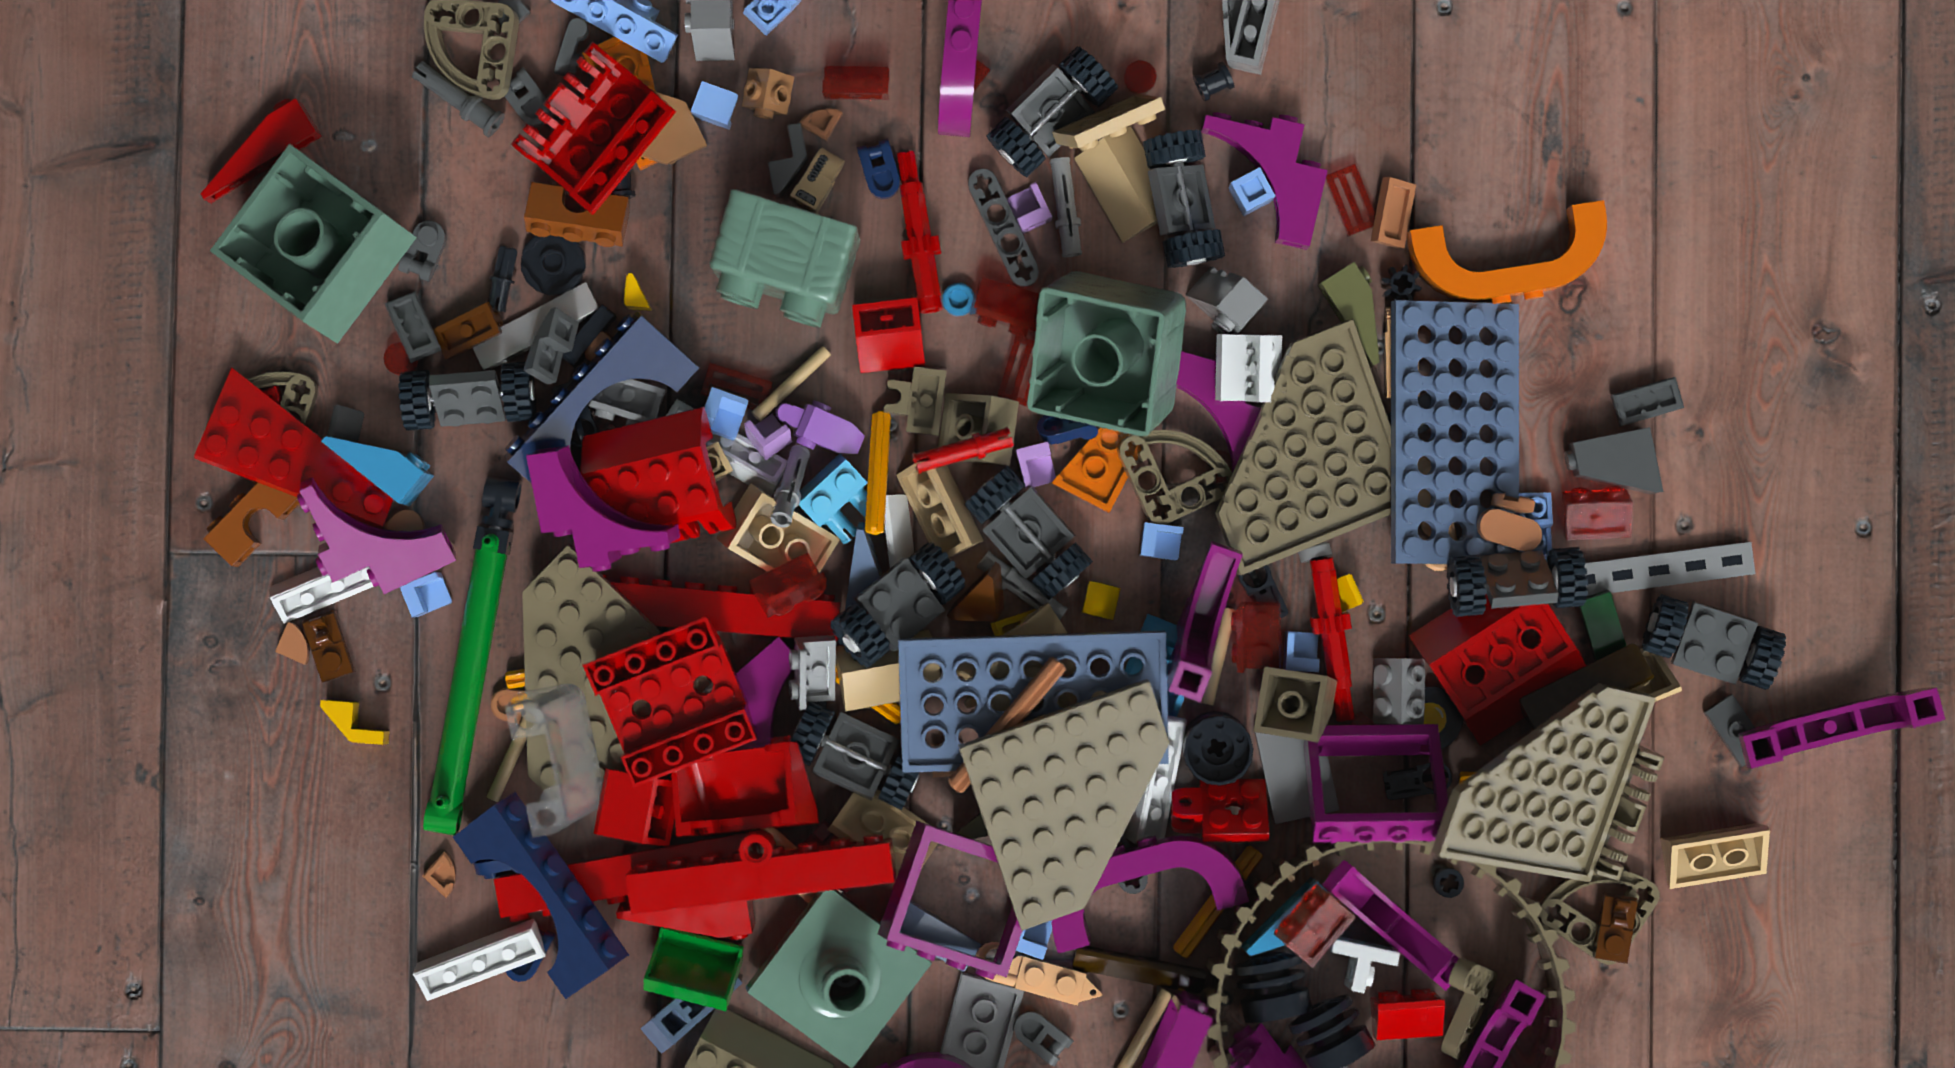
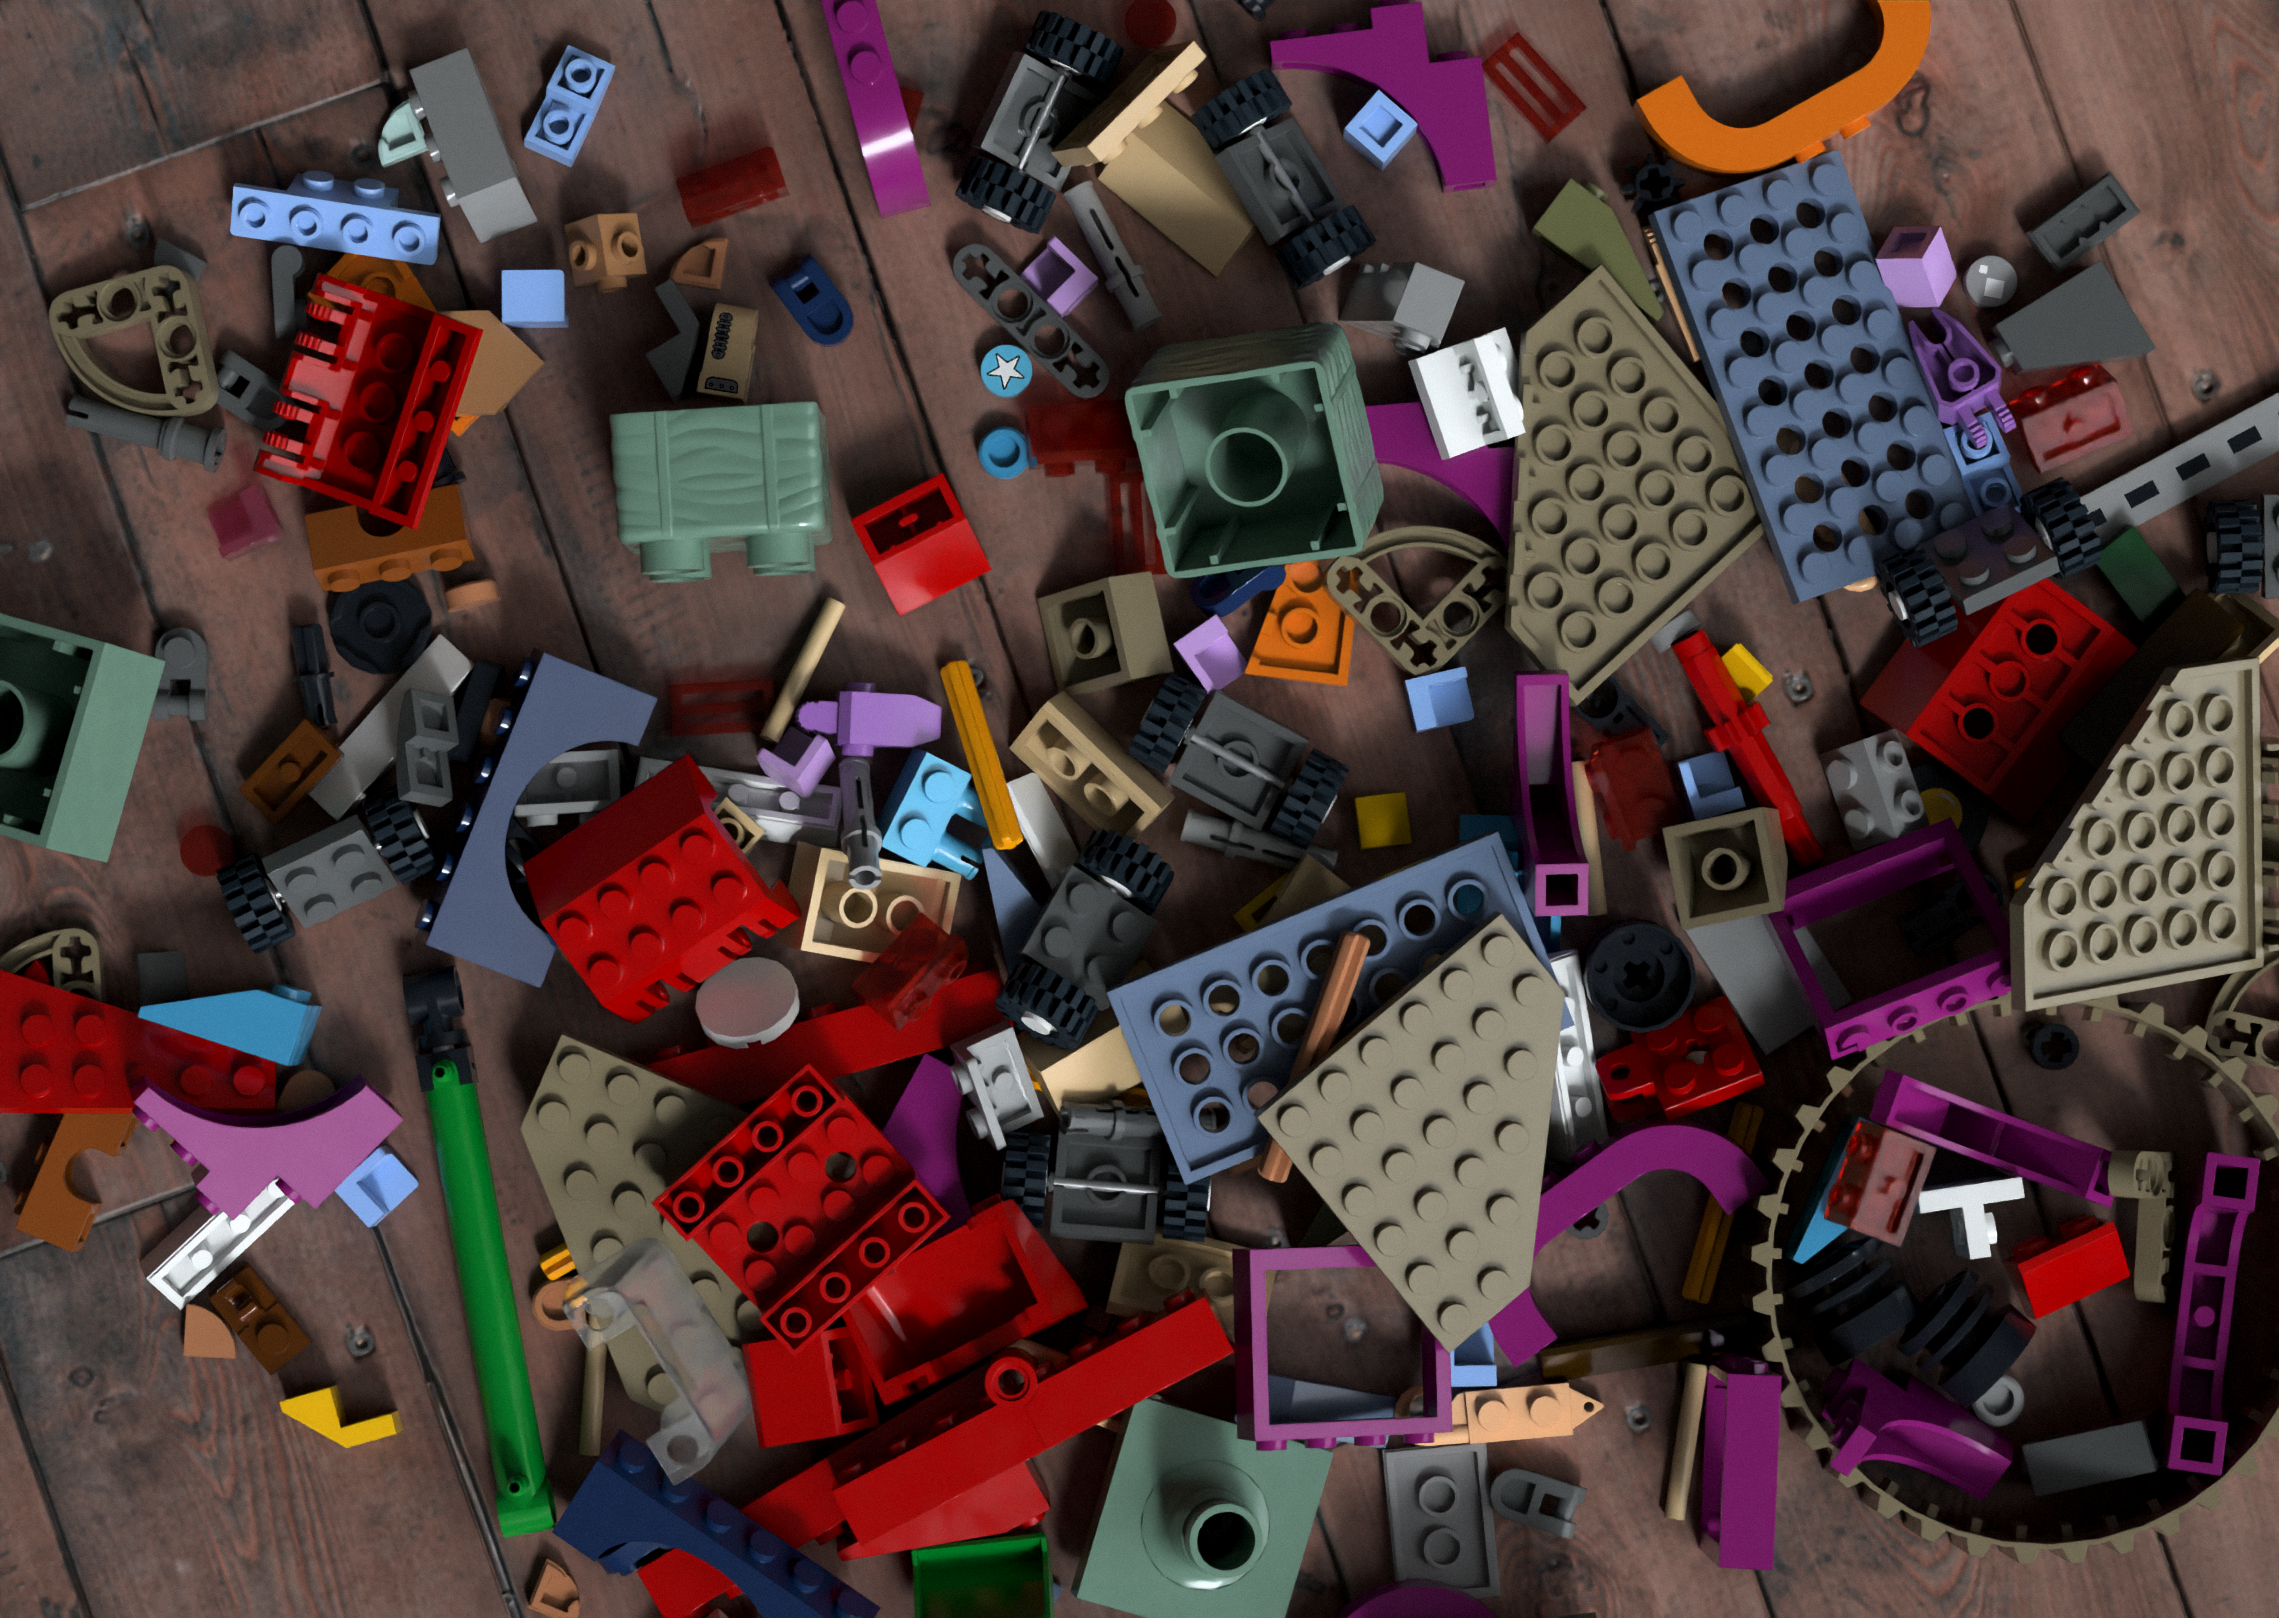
camera: 15 degrees left, 0 degrees up
(412, 327) = (208, 796): dark grey plate -> none
(495, 174) = (246, 524): none -> clear pink panel
(571, 507) = (547, 975): magenta arch -> none
(612, 266) = (471, 595): none -> nougat tile
(634, 295) = (520, 626): yellow slope -> none
(685, 567) = (747, 1002): none -> white tile
(725, 413) = (721, 750): light blue panel -> none
(878, 719) = (1117, 1120): none -> dark grey pin
(920, 244) = (918, 393): red piece -> none
(920, 400) = (1003, 624): dark tan plate -> none
(962, 450) = (1113, 661): red pin -> none
(977, 251) = (1006, 371): none -> medium azure tile
(982, 599) = (1206, 884): reddish brown slope -> none
(1393, 212) = (1601, 83): nougat tile -> none
(1509, 530) = (1949, 490): nougat tile -> none
(1520, 505) = (1949, 449): nougat tile -> none
(1539, 390) = (1916, 266): none -> lavender panel
(1540, 465) = (1959, 377): none -> medium lavender hinge
(1579, 416) = (1989, 282): none -> light grey tile

